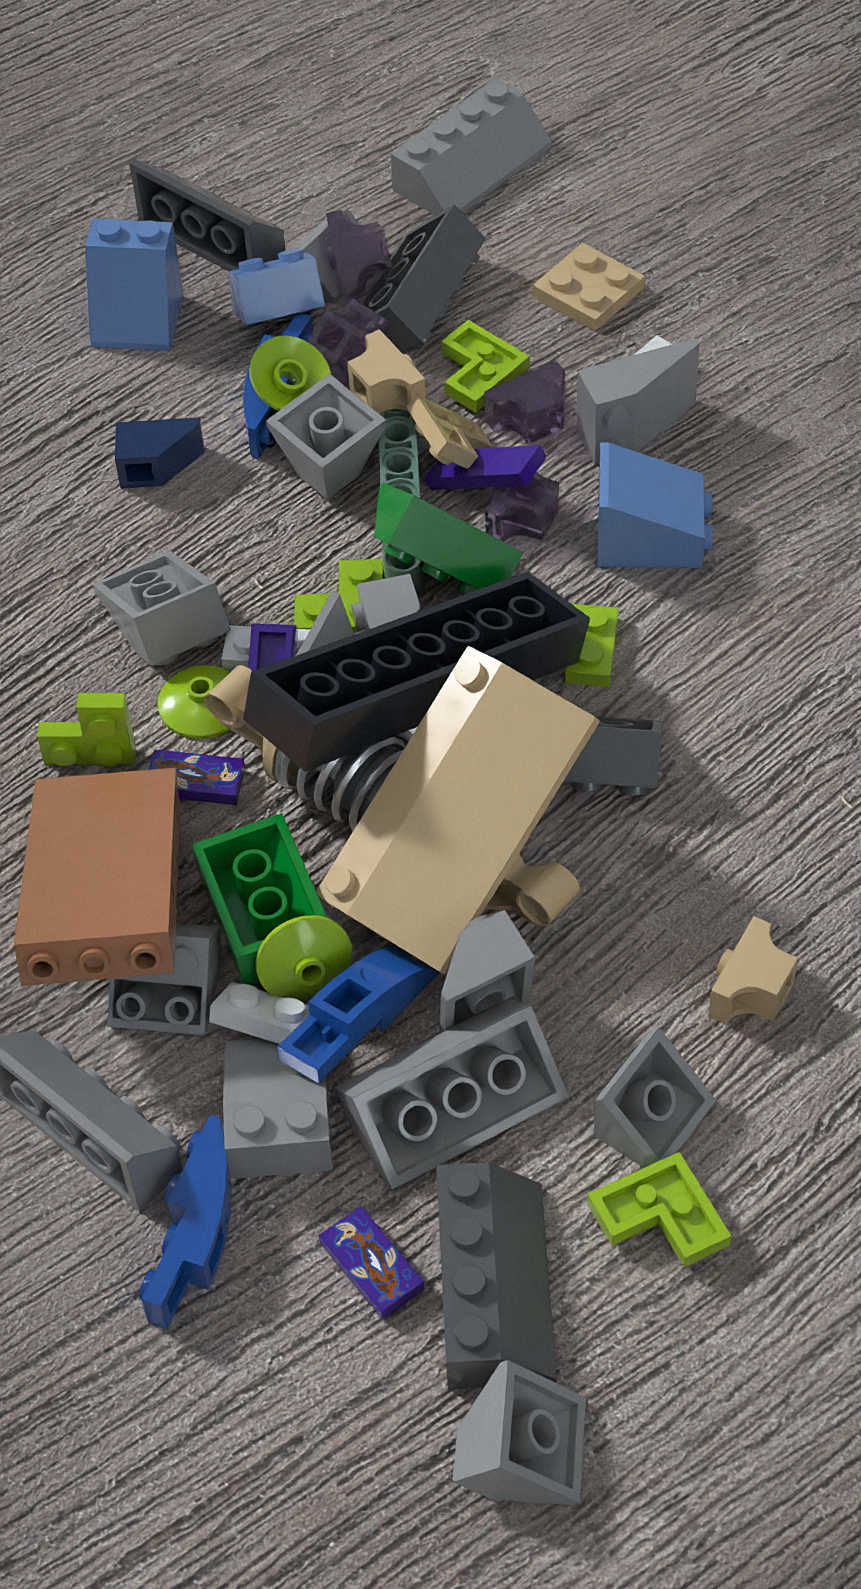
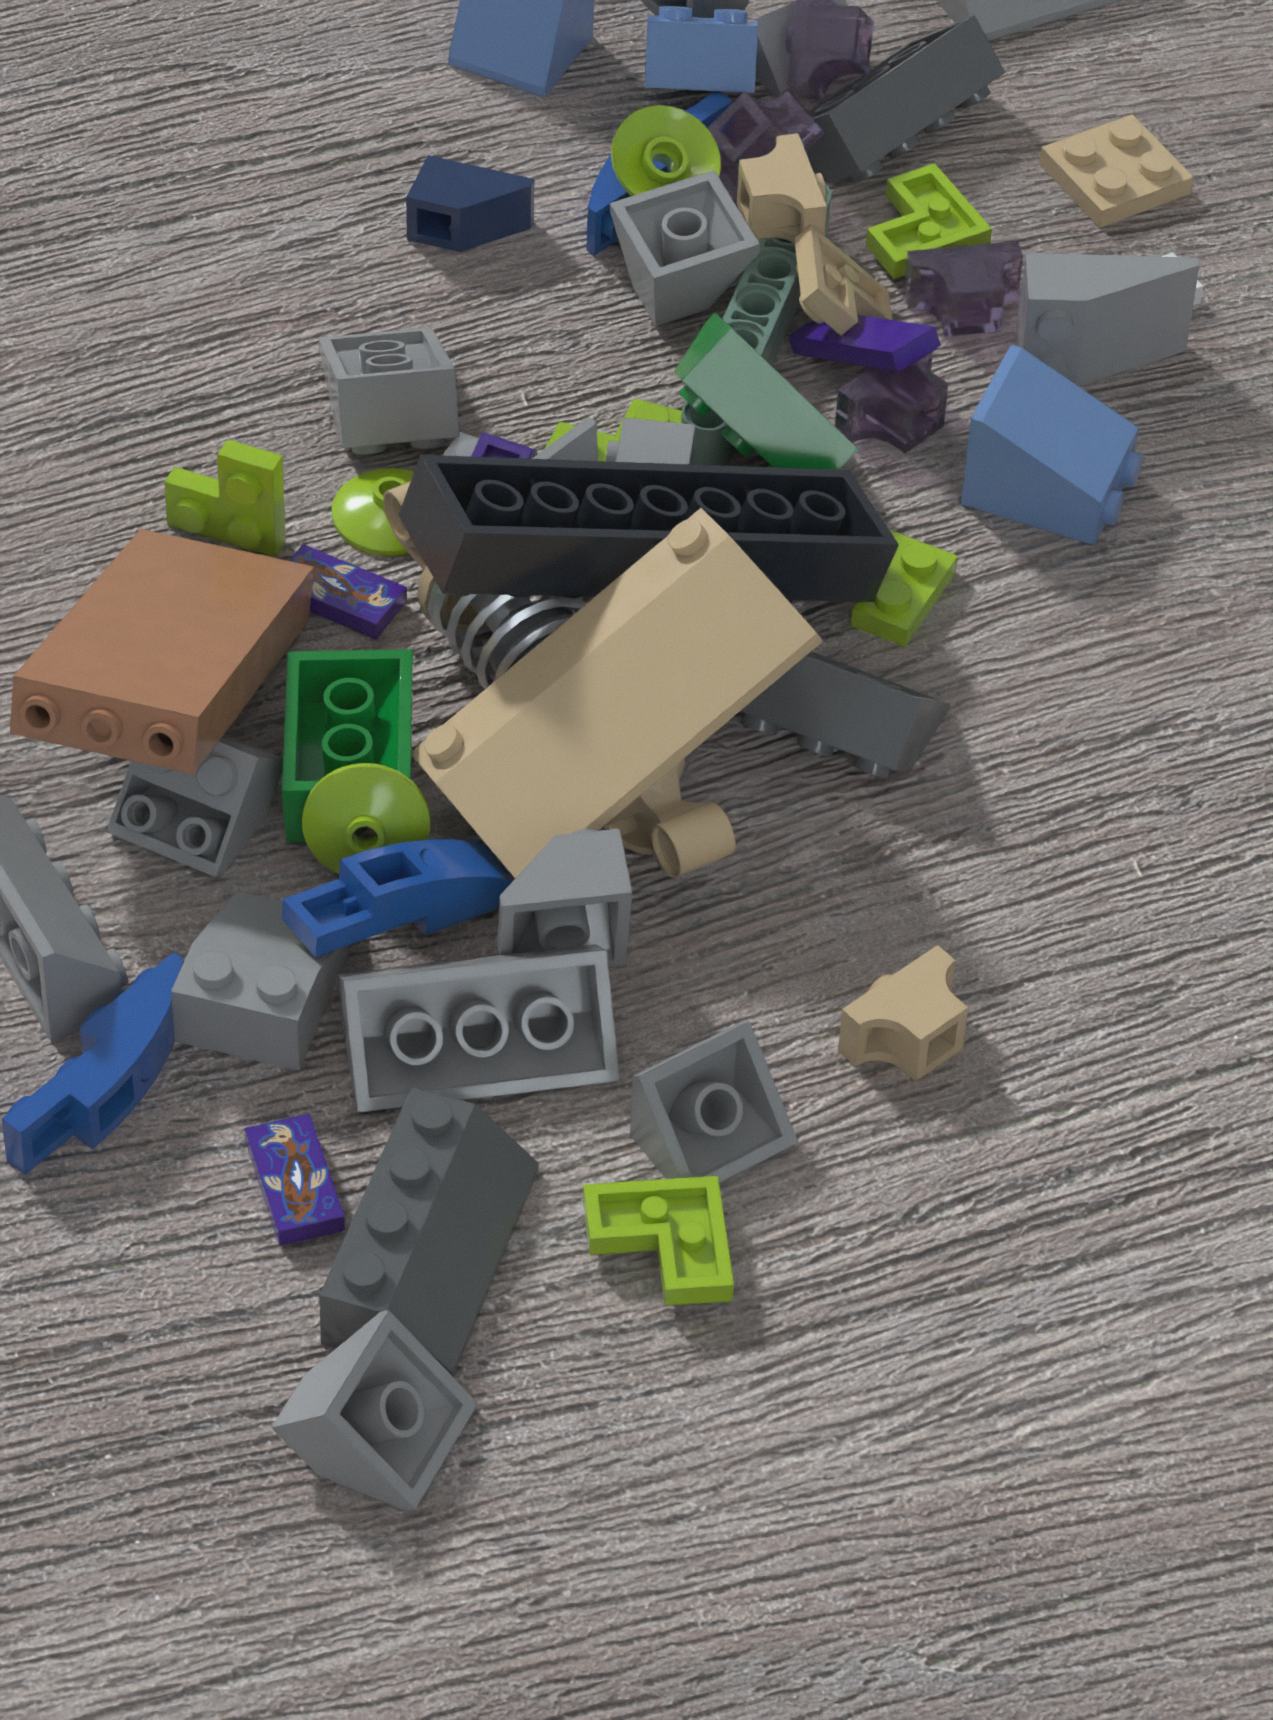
camera: 15 degrees right, 5 degrees down
(257, 1012) = (280, 862): white plate -> none

